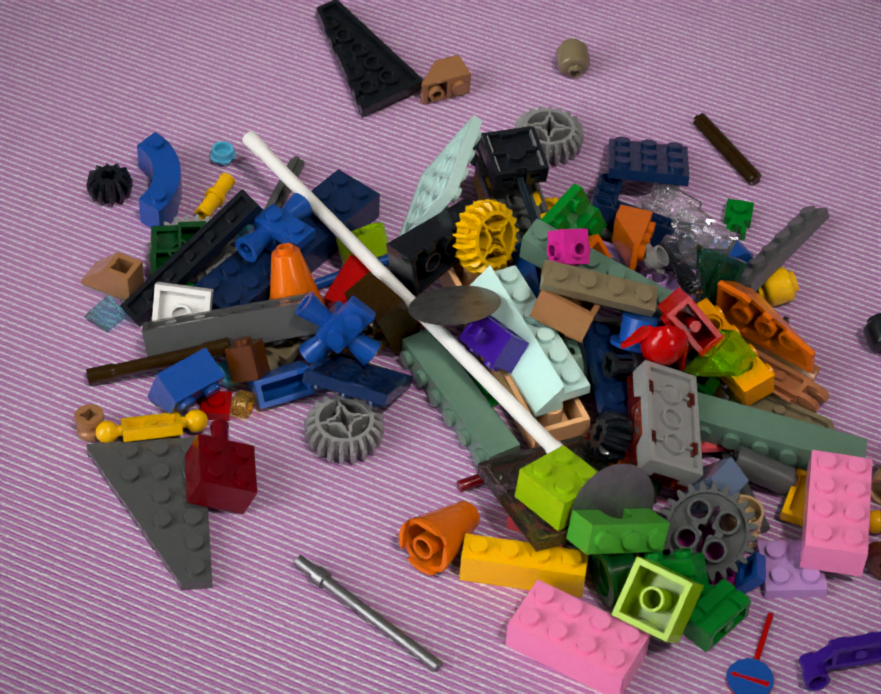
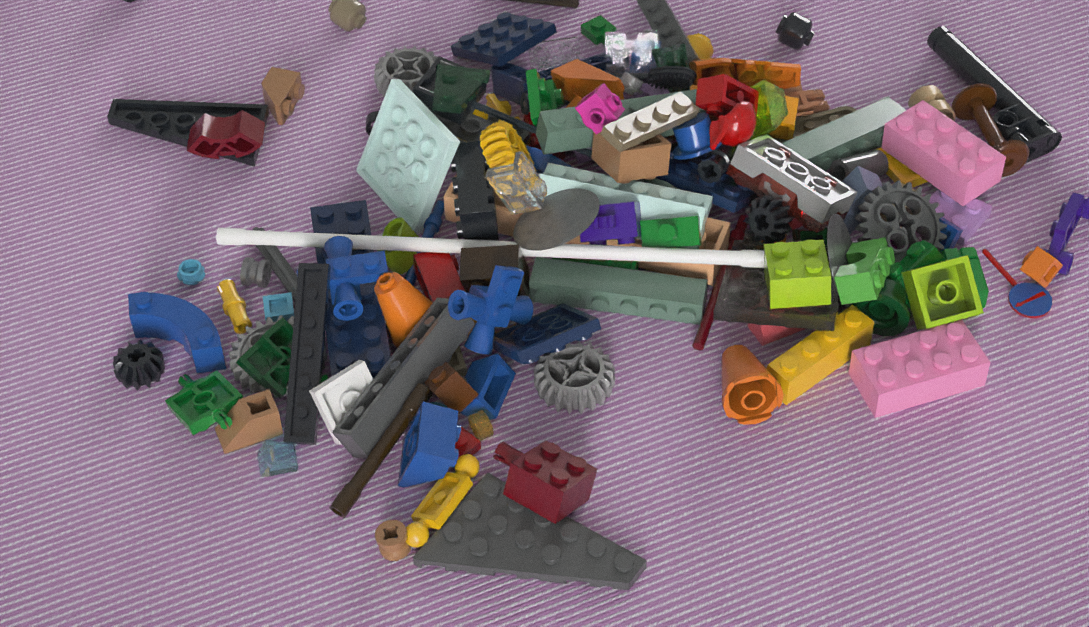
camera: 45 degrees left, 0 degrees up
(108, 237) = (204, 402): none -> green plate
(256, 185) = (255, 272): none -> flat silver wheel
(322, 579) = (709, 486): flat silver bar -> none
(358, 77) = (226, 135): none -> dark red brick
(458, 259) = (518, 185): none -> clear bracket
(510, 156) = (456, 87): none -> clear green wing
(526, 385) = (671, 232): none -> green tile
(784, 661) = (1040, 266): none -> orange plate

